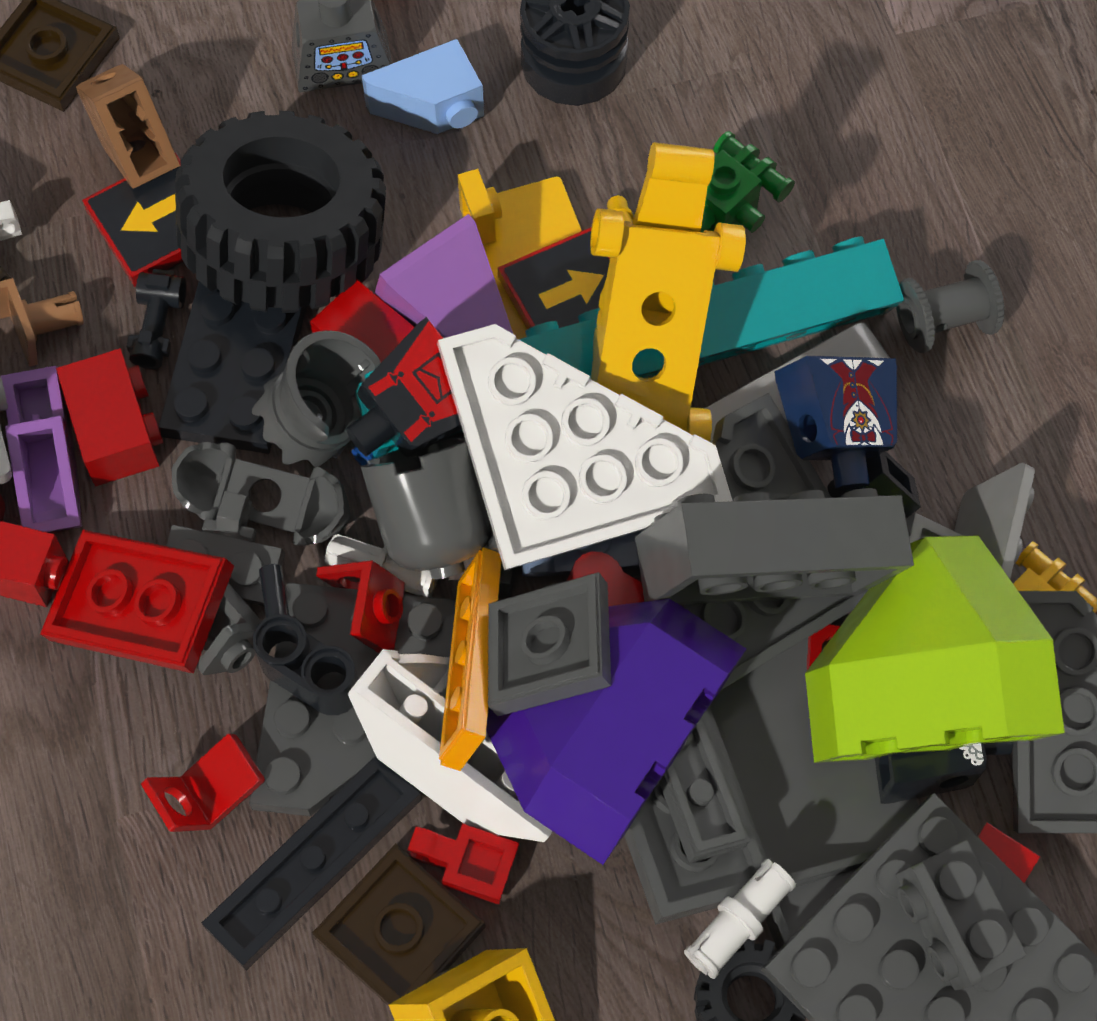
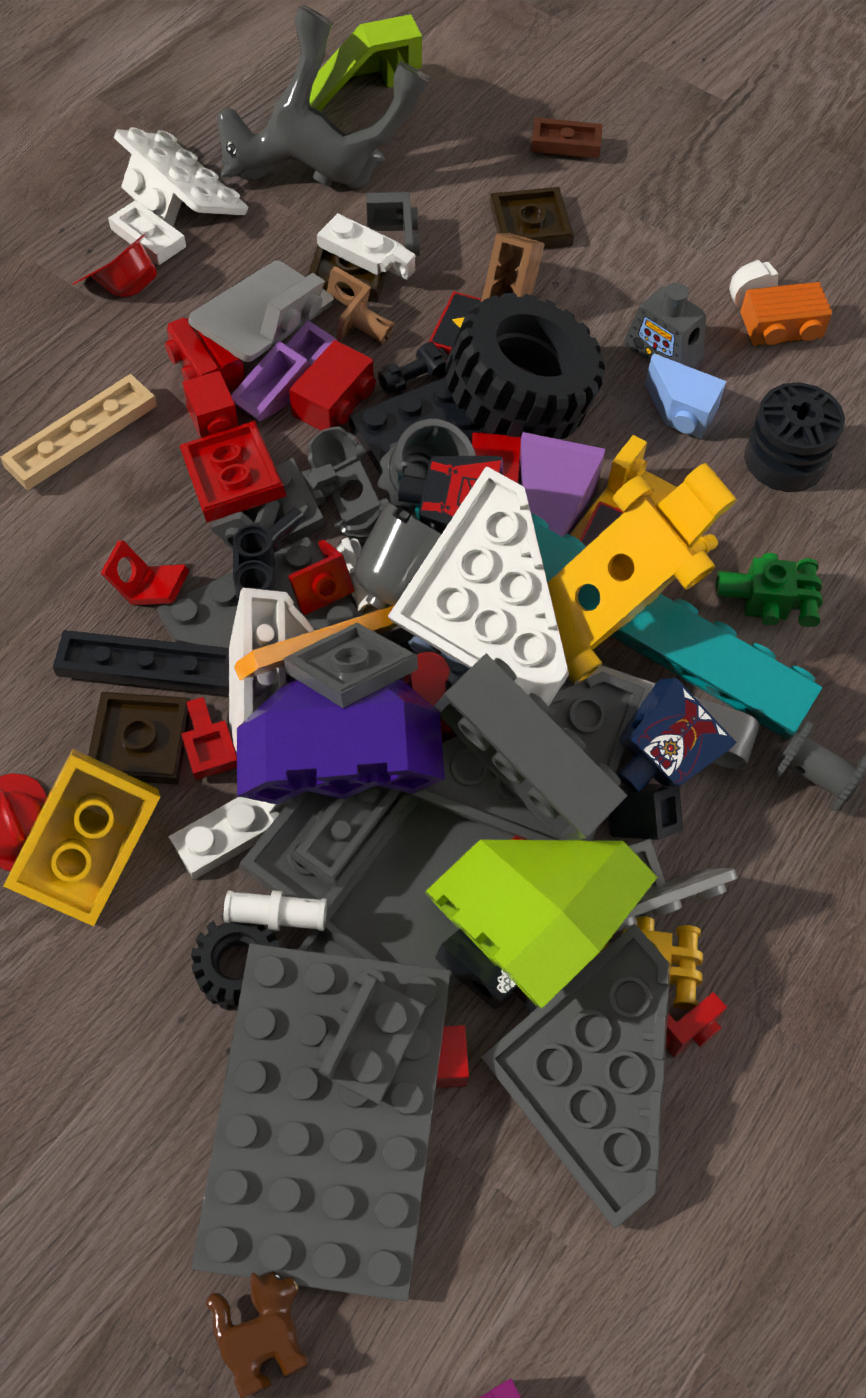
camera: 50 degrees right, 5 degrees down
(586, 918) = (223, 834): none -> white hinge

